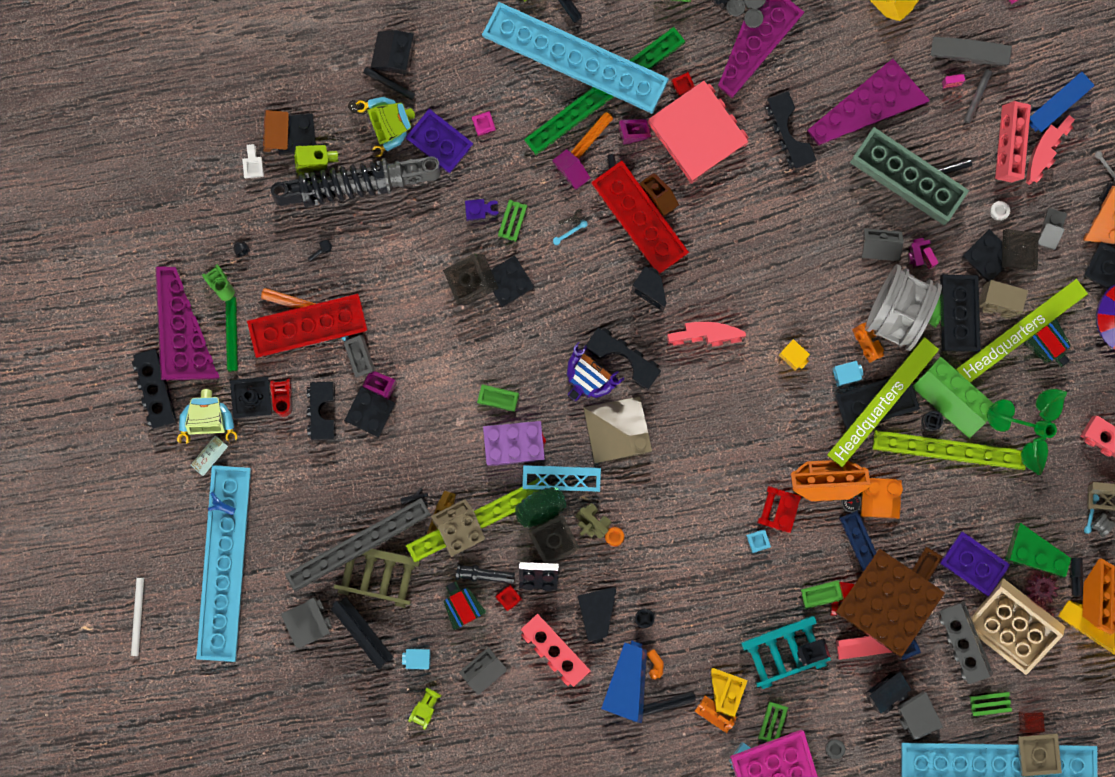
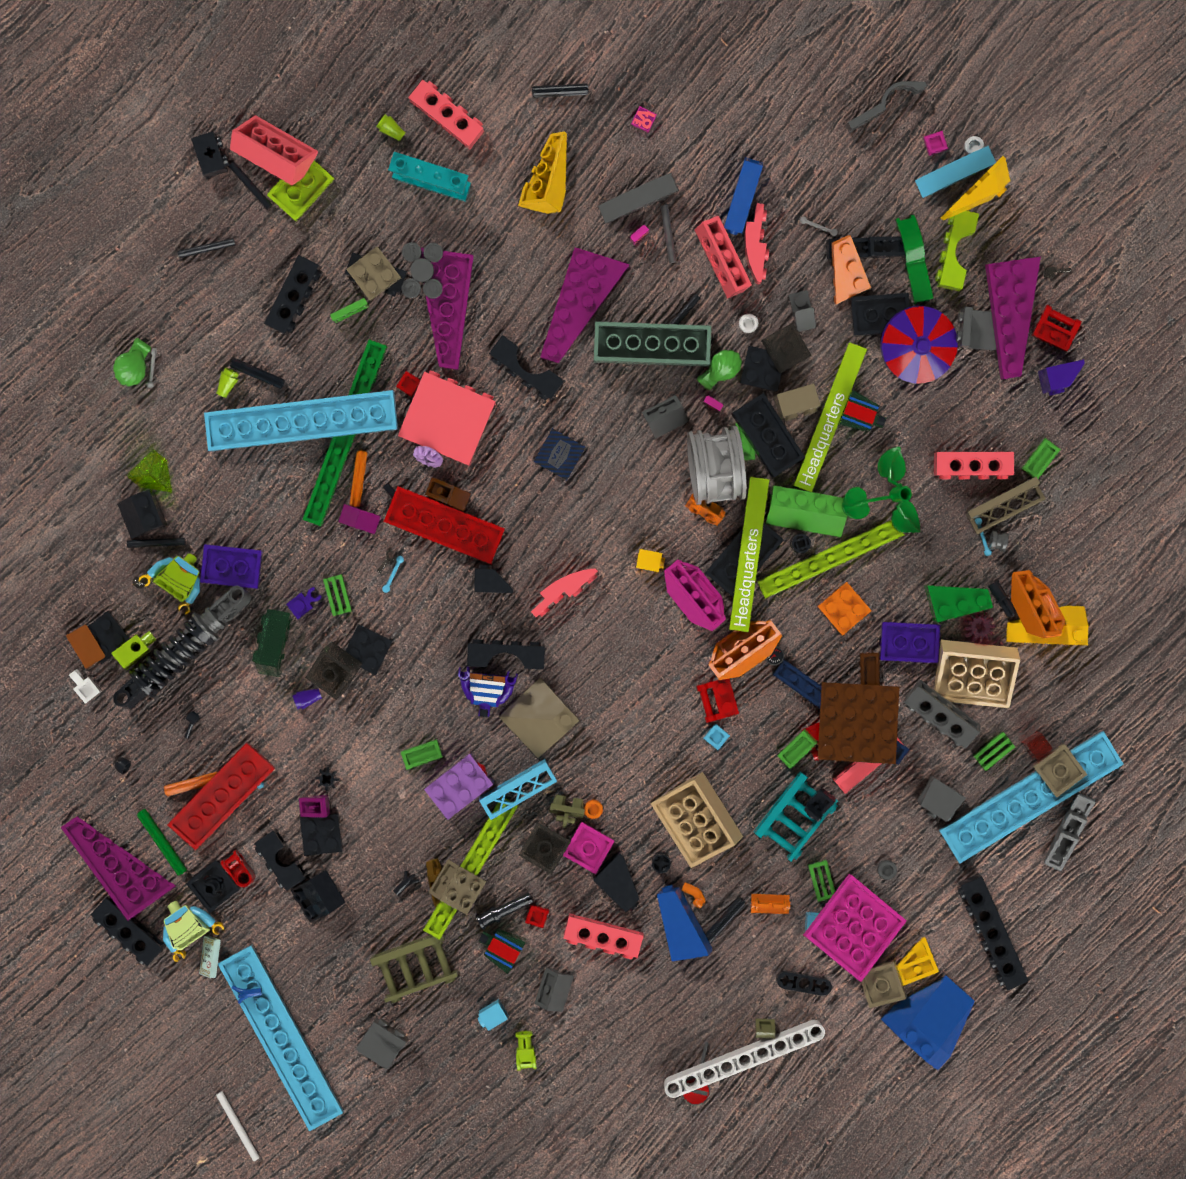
camera: 30 degrees left, 5 degrees up
(219, 283) = (123, 807): bright green piece -> none
(333, 462) = (318, 896): none -> black slope
(357, 545) = (382, 954): dark grey tile -> none
(359, 356) = (282, 793): dark grey plate -> none
(362, 632) = (433, 1022): black fence -> none
(402, 364) = (321, 778): none -> black gear
(423, 23) = (152, 473): none -> clear neon green slope
(431, 289) = (306, 698): none -> dark purple cone
(433, 225) = (272, 642): none -> clear green wedge
(483, 123) = (259, 526): dark pink tile -> none
(538, 576) = (550, 884): black plate -> none
(540, 507) = (515, 826): clear green gear -> none
(590, 566) = (588, 847): none -> dark pink plate
(634, 130) = (392, 451): magenta slope -> none
(662, 152) = (428, 456): none -> lavender gear
(697, 601) = (697, 820): none -> tan slope
(727, 692) = (768, 880): yellow wing -> none
(773, 220) = (559, 454): none -> tile
(815, 407) = (694, 595): none -> dark pink wedge
(847, 373) = (704, 547): medium azure brick -> none
(882, 498) = (798, 636): orange slope -> none
(888, 691) = (901, 796): black slope -> none
(915, 255) = (699, 409): magenta bracket -> none
(935, 500) = (844, 608): none -> orange plate
(957, 233) = (722, 367): none -> bright green animal

